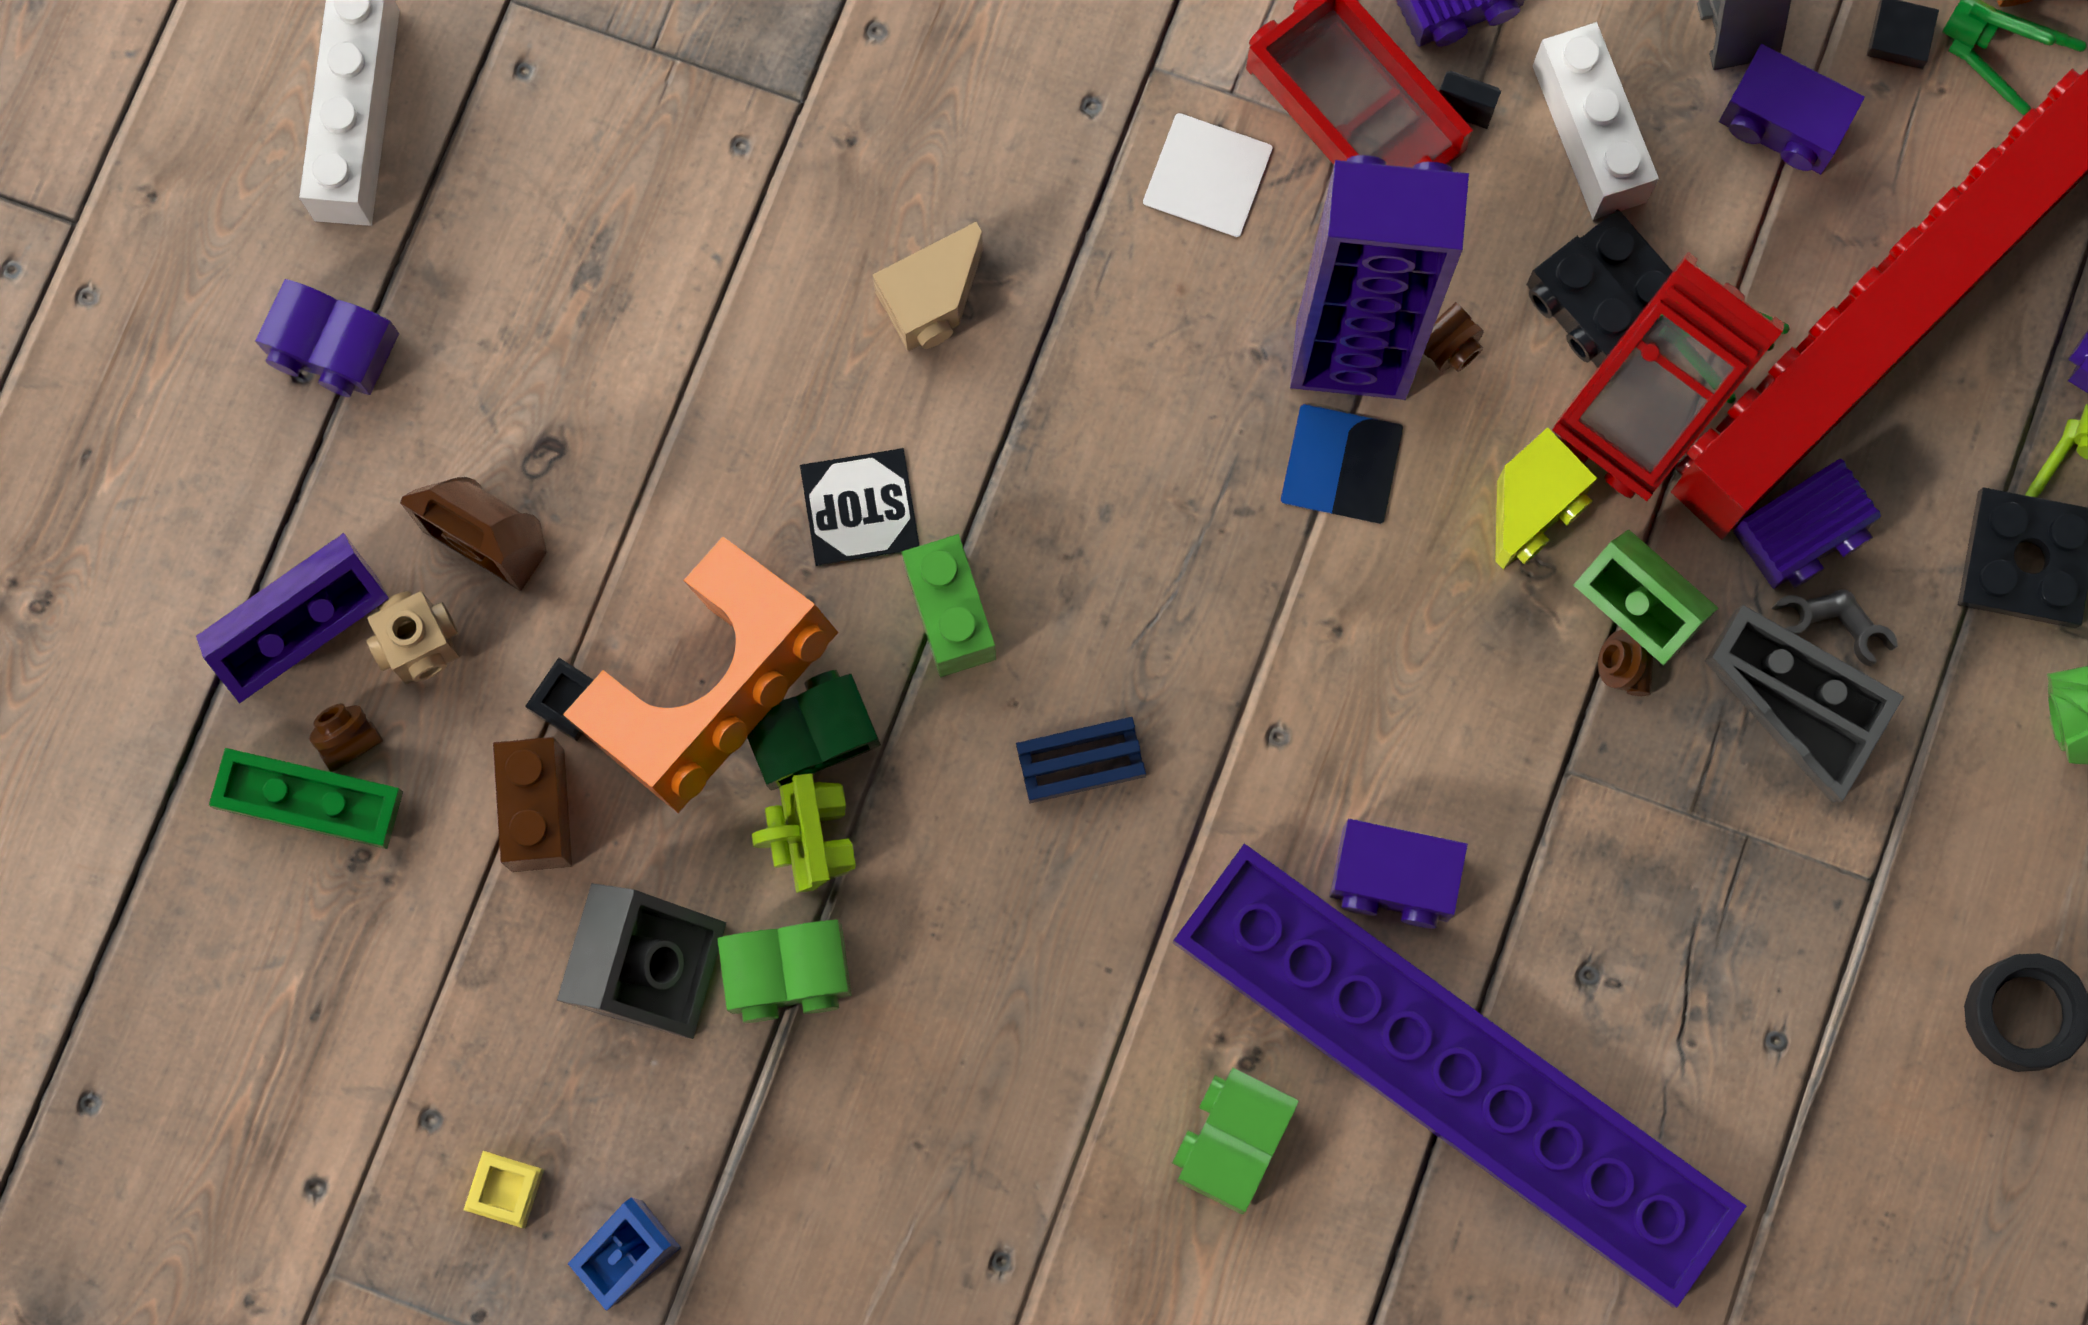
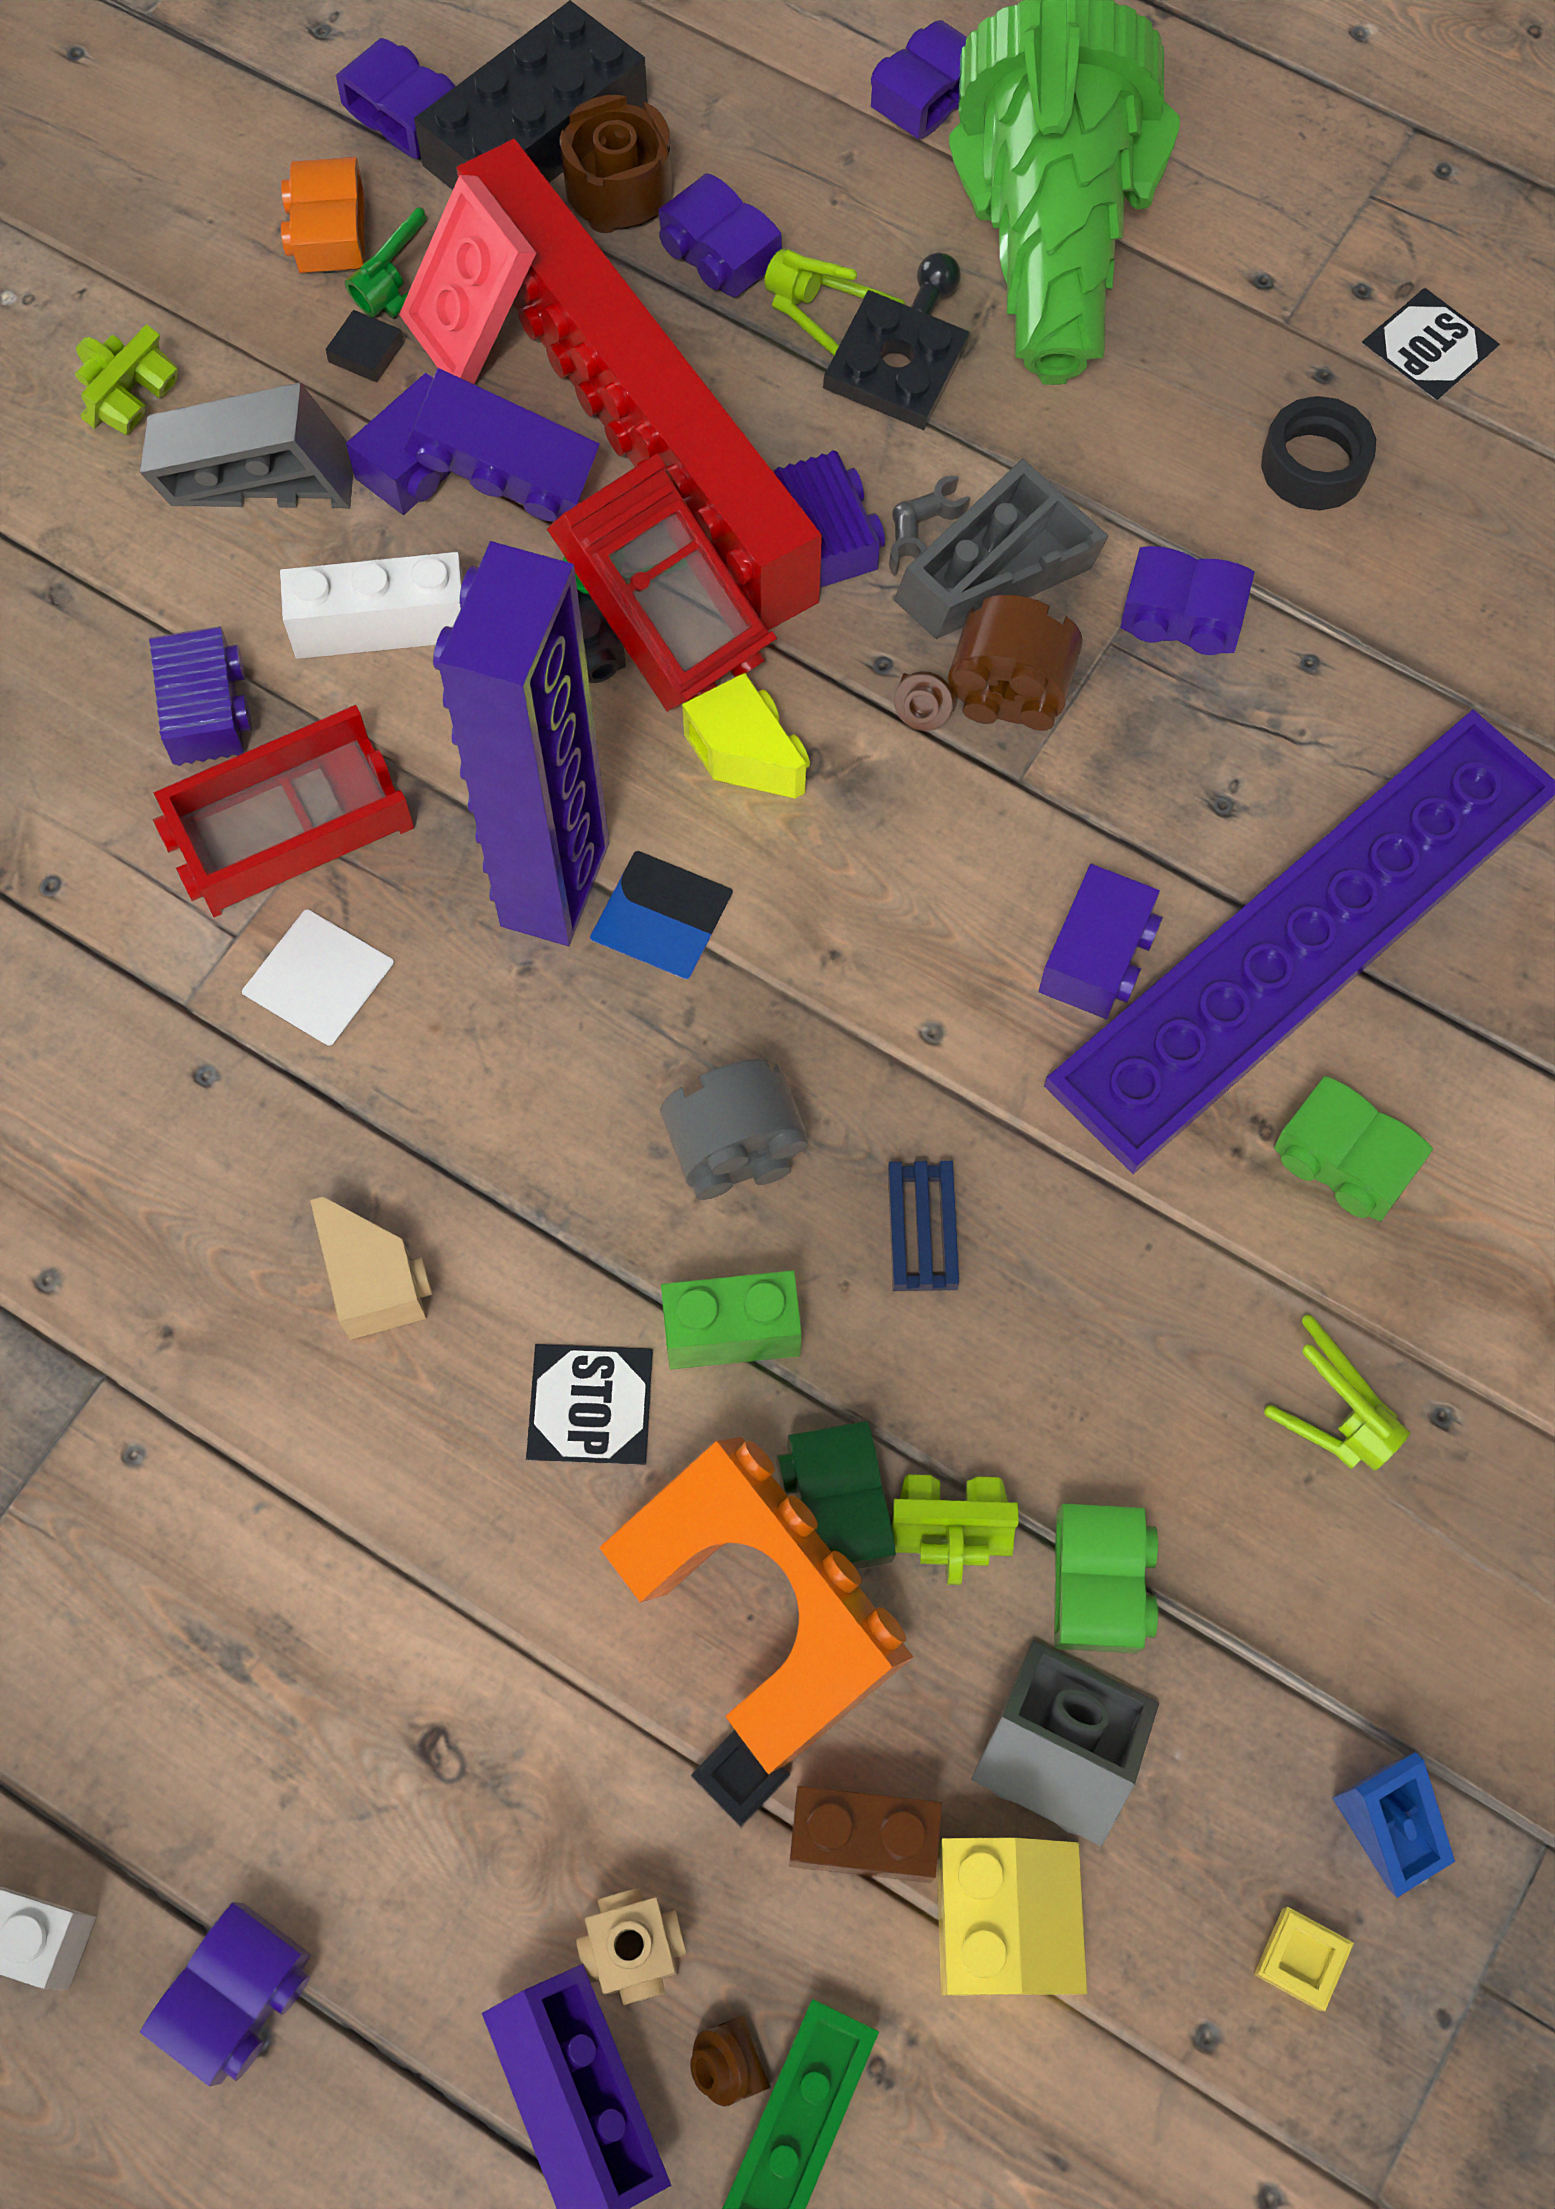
camera: 80 degrees left, 10 degrees down
(479, 528) = (518, 1838): reddish brown slope -> none
(489, 937) = (1010, 1917): none -> light yellow slope
(966, 1189) = (1369, 1429): none -> lime plant
(1123, 569) = (735, 1128): none -> dark grey brick
(1470, 98) = (318, 701): black tile -> none
(1645, 596) = (871, 660): bright green brick -> none
(1674, 734) = (1014, 662): none -> reddish brown brick
(1789, 190) = (500, 447): none -> dark purple brick
(1805, 899) = (1187, 600): none -> dark purple brick
(1974, 107) = (467, 280): none -> coral plate

